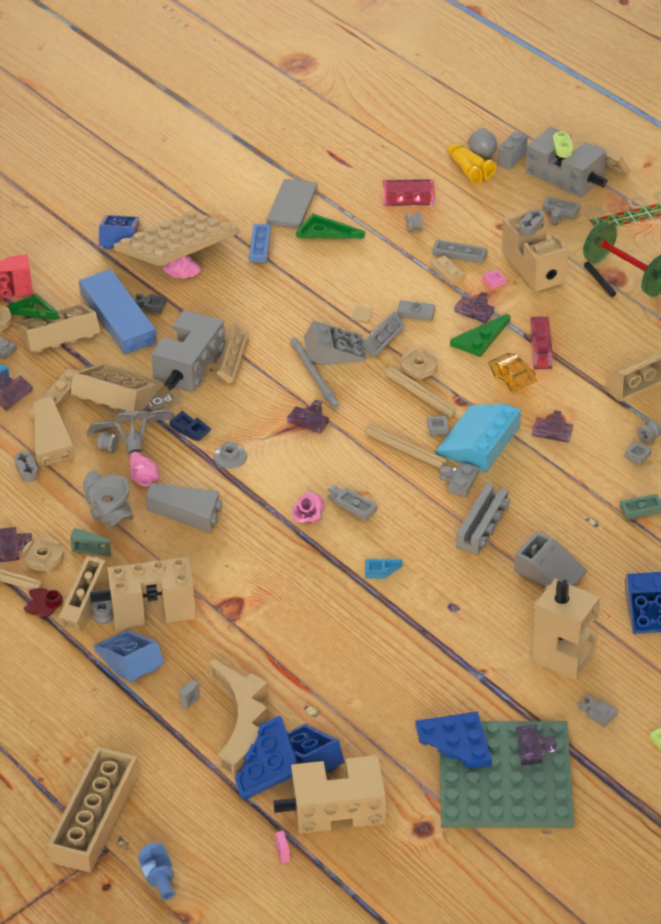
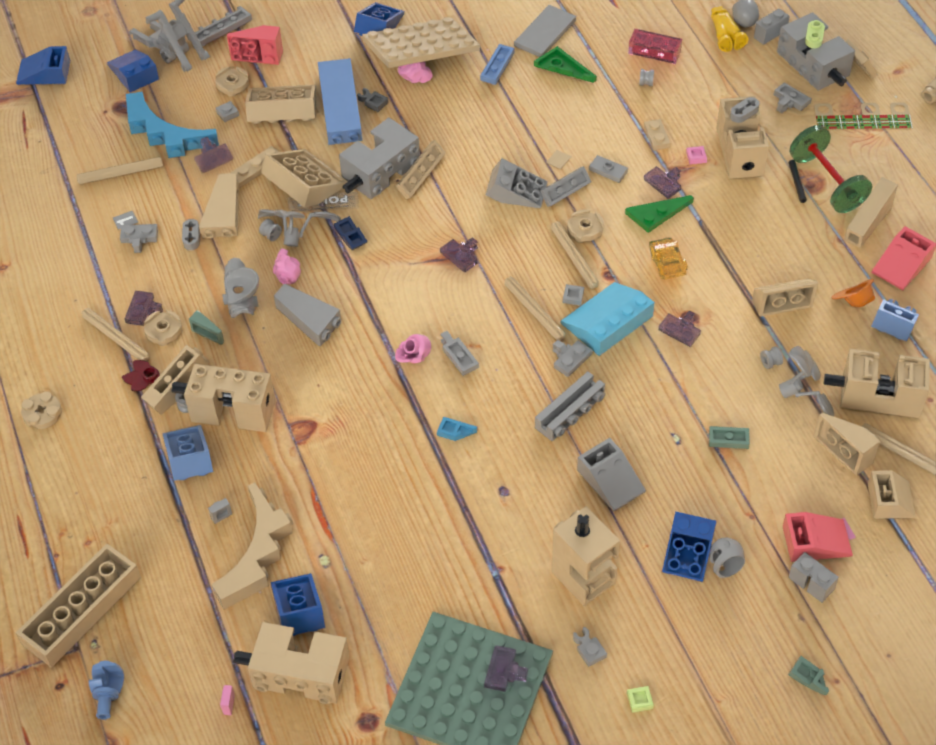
camera: 20 degrees right, 10 degrees up
(34, 307) = (268, 78): green wing -> none
(230, 456) = (374, 278): light grey piece -> none
(267, 760) = (252, 604): blue plate -> none
(327, 393) = (488, 234): light grey bar -> none
(456, 737) = (437, 637): blue plate -> none
(459, 251) = (677, 118): light grey tile -> none
(541, 343) = (708, 235): clear pink brick -> none
(637, 453) = (751, 378): light grey plate -> none

